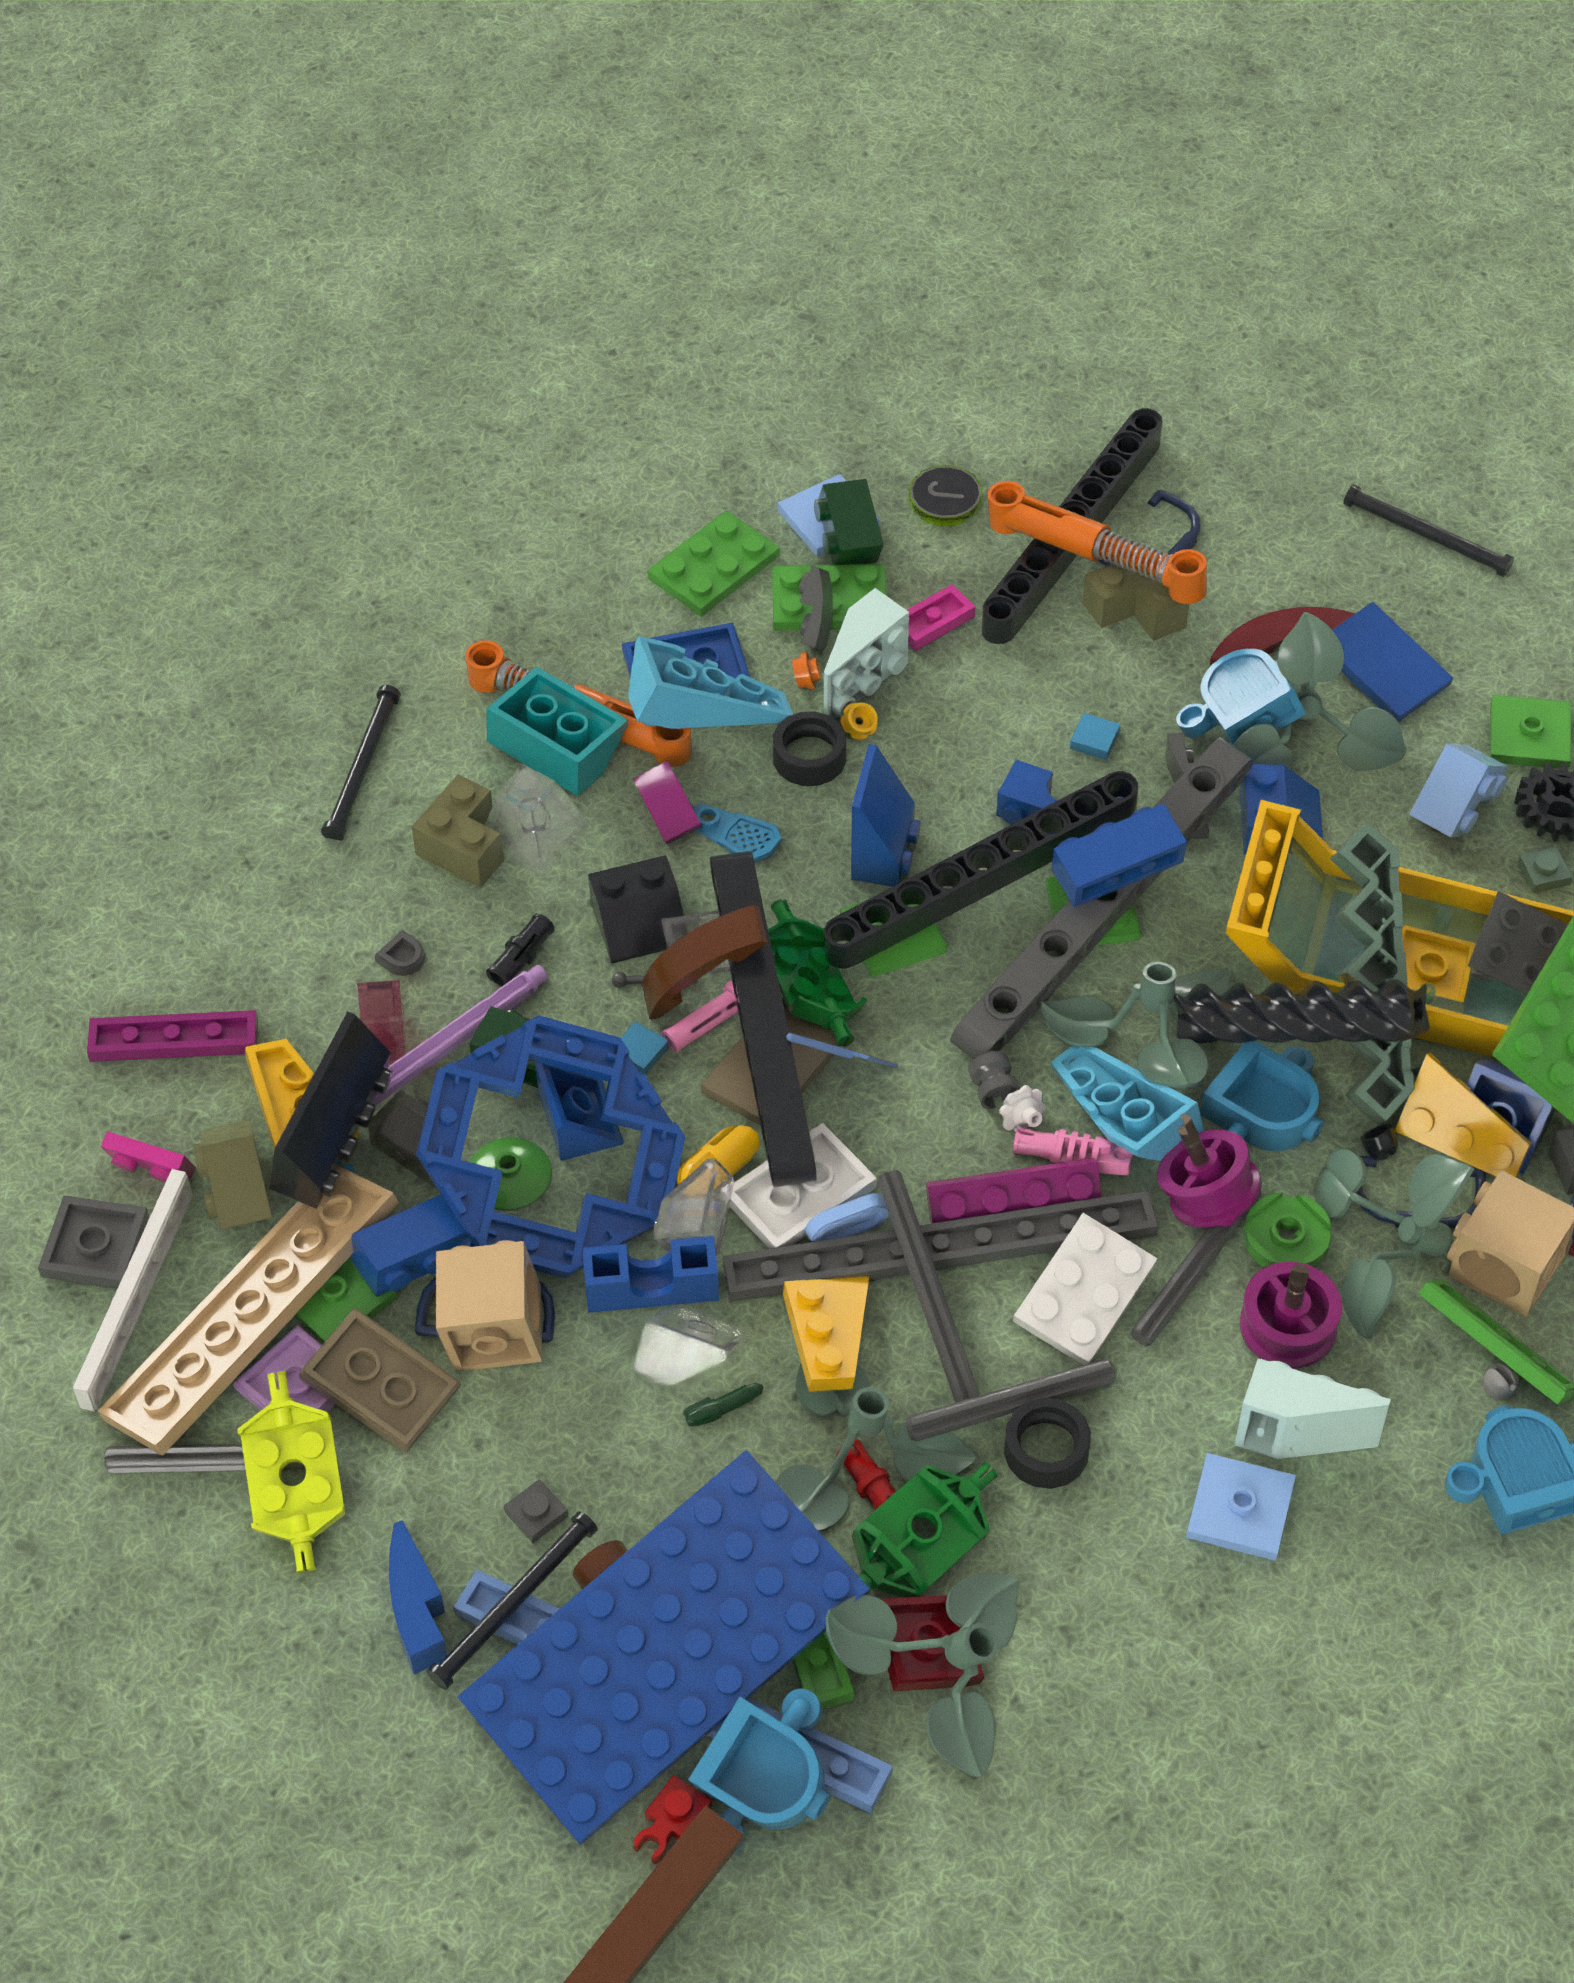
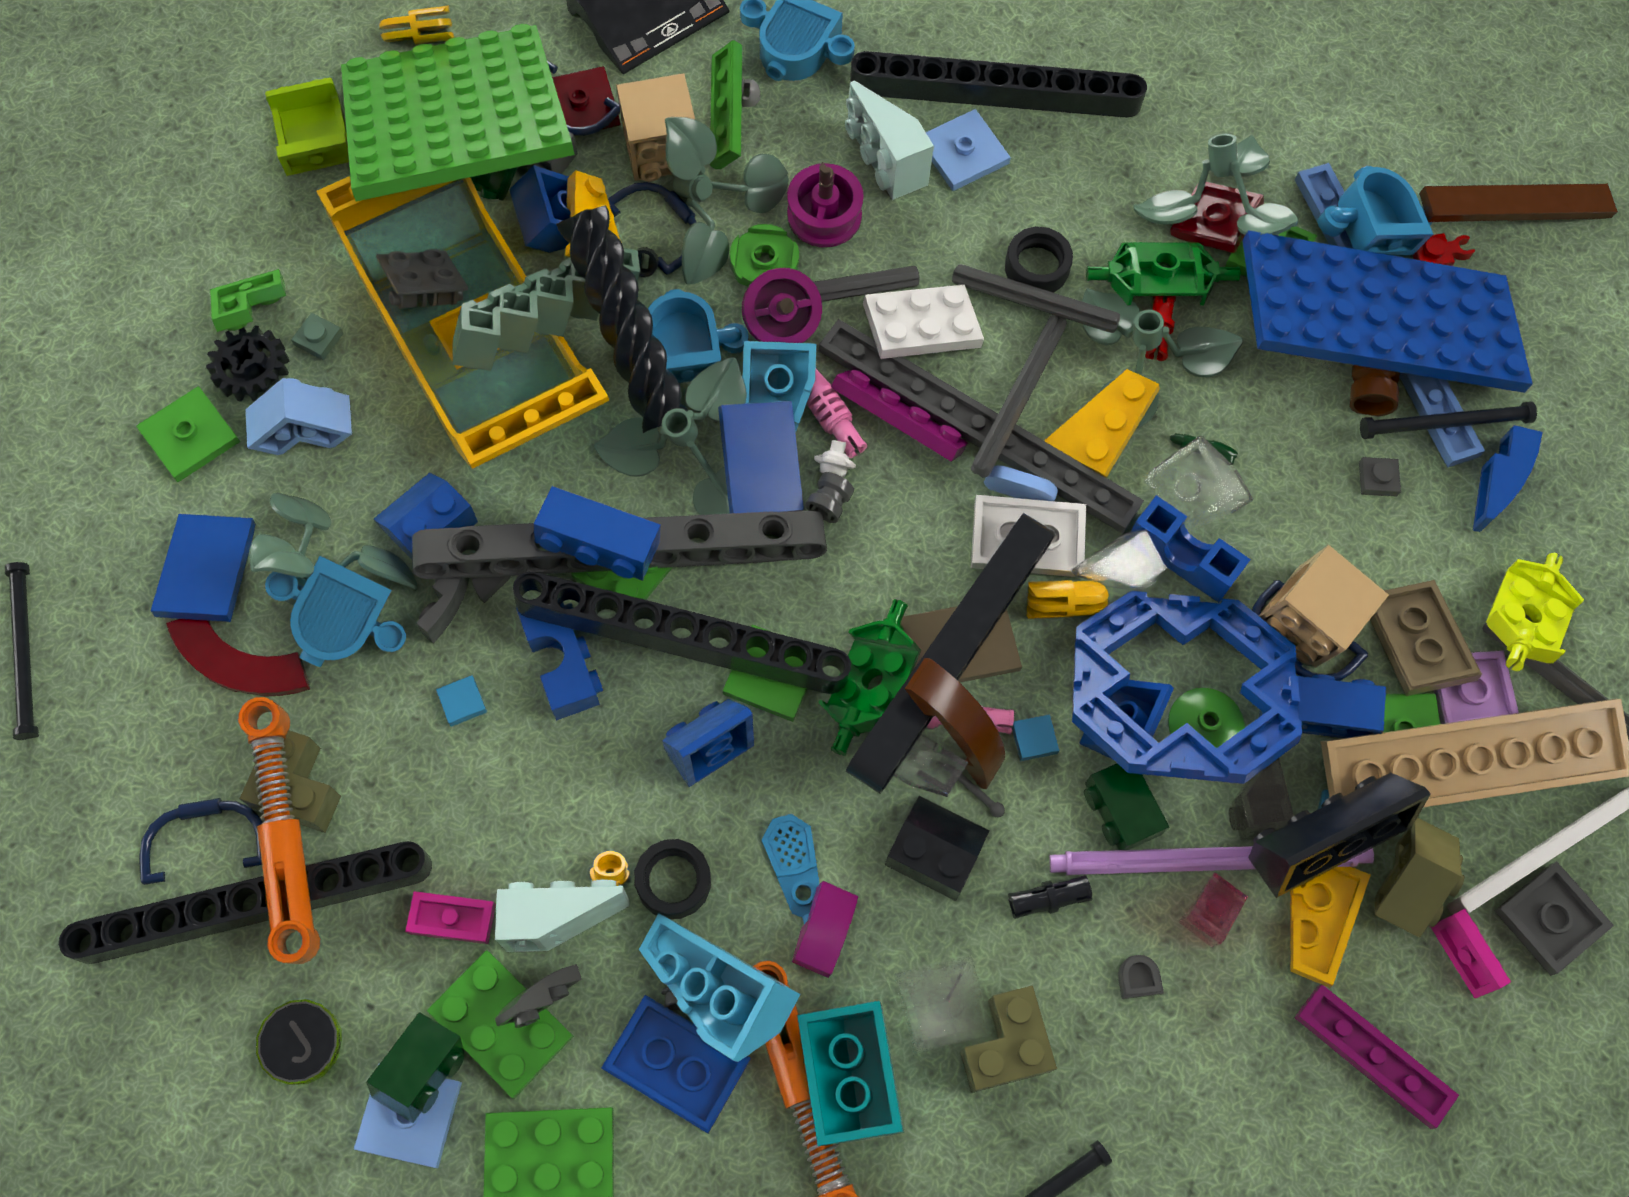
camera: 140 degrees left, 15 degrees up
(806, 671) = (599, 956): orange plate -> none
(833, 1049) = (898, 584): medium blue piece -> none
(1079, 1046) = (760, 457): none -> blue tile
(1276, 1613) = (999, 84): none -> black beam

